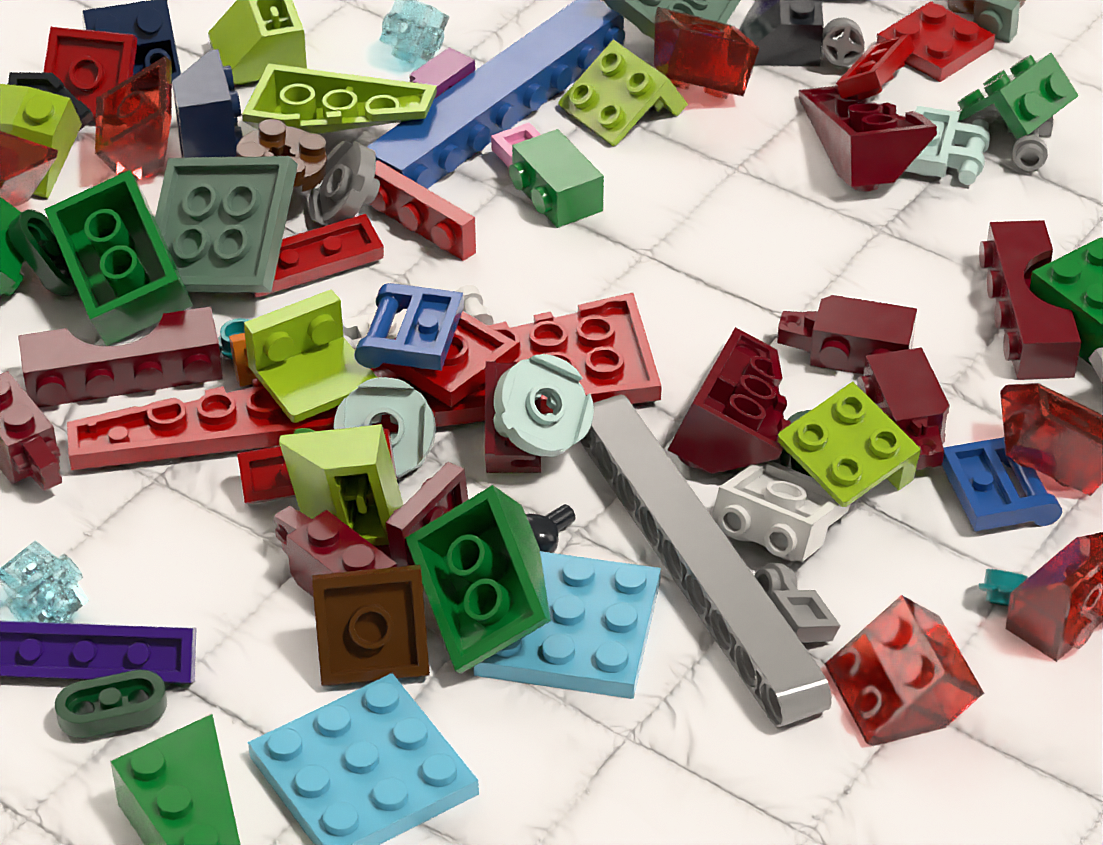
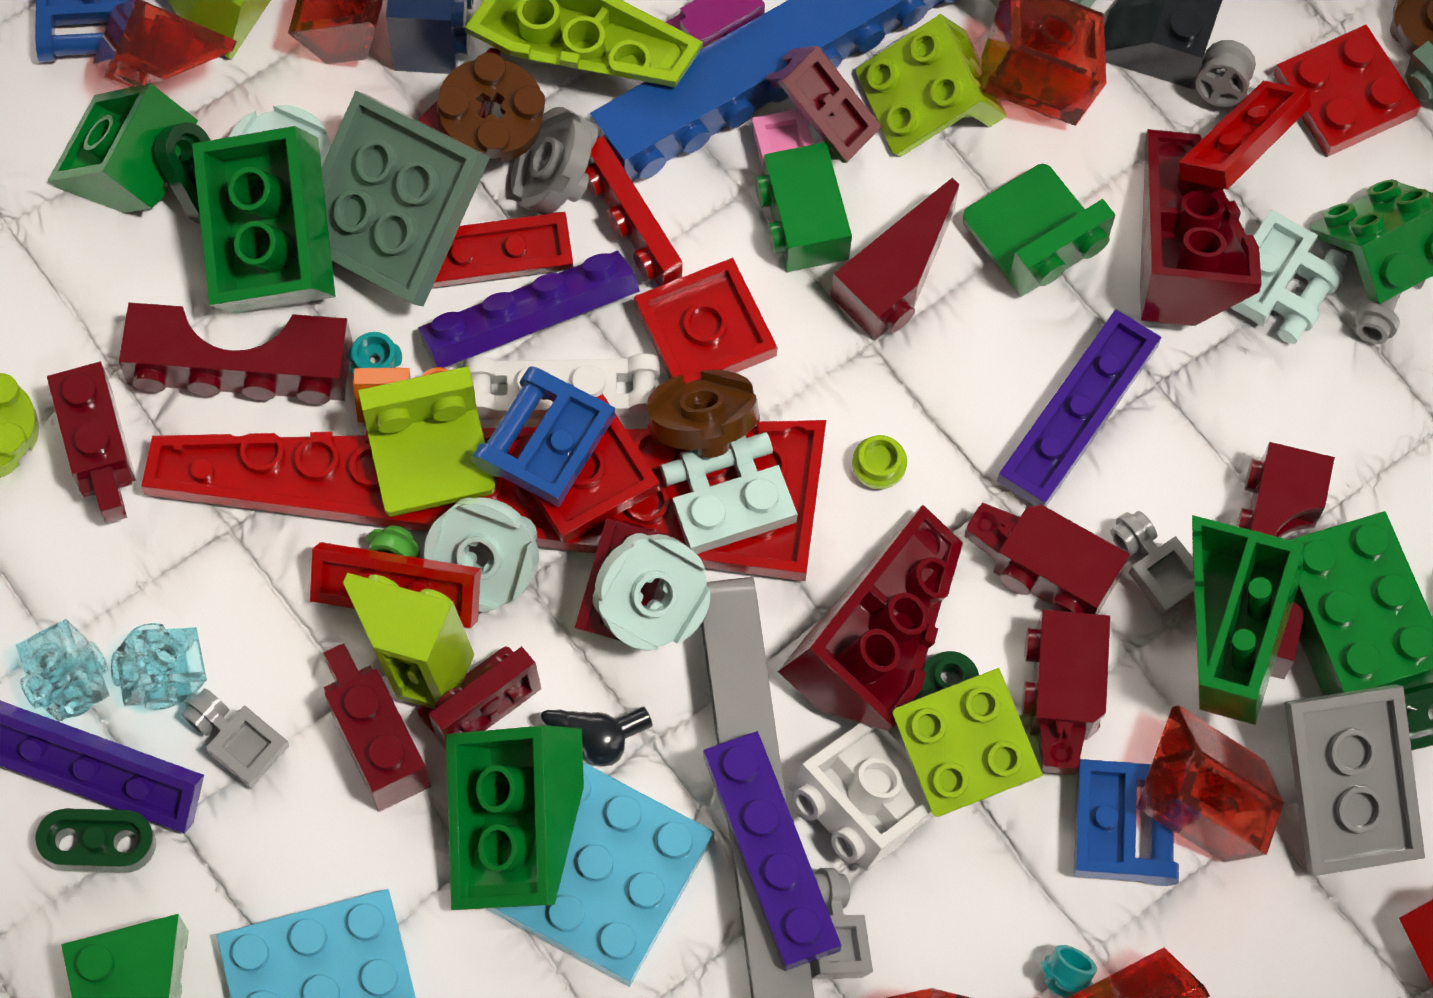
camera: 15 degrees right, 25 degrees up
(129, 564) = (158, 666): none -> clear light blue brick
(221, 607) = (243, 744): none -> light grey plate
(370, 624) = (377, 834): reddish brown plate -> none
(377, 268) = (528, 309): none -> dark purple plate
(508, 263) = (705, 323): none -> red plate
(538, 293) = (703, 412): none -> reddish brown plate
(548, 99) = (826, 101): none -> dark red hinge
(589, 349) = (734, 508): none -> light aqua plate
(639, 202) = (887, 276): none -> dark red slope
(687, 312) = (879, 462): none -> lime plate
(721, 551) = (771, 851): none -> dark purple plate
(745, 157) = (1037, 228): none -> green bracket
(829, 246) = (1079, 409): none -> dark purple plate
(945, 326) = (1164, 571): none -> light grey plate
(1022, 304) = (1241, 612): none -> green wedge

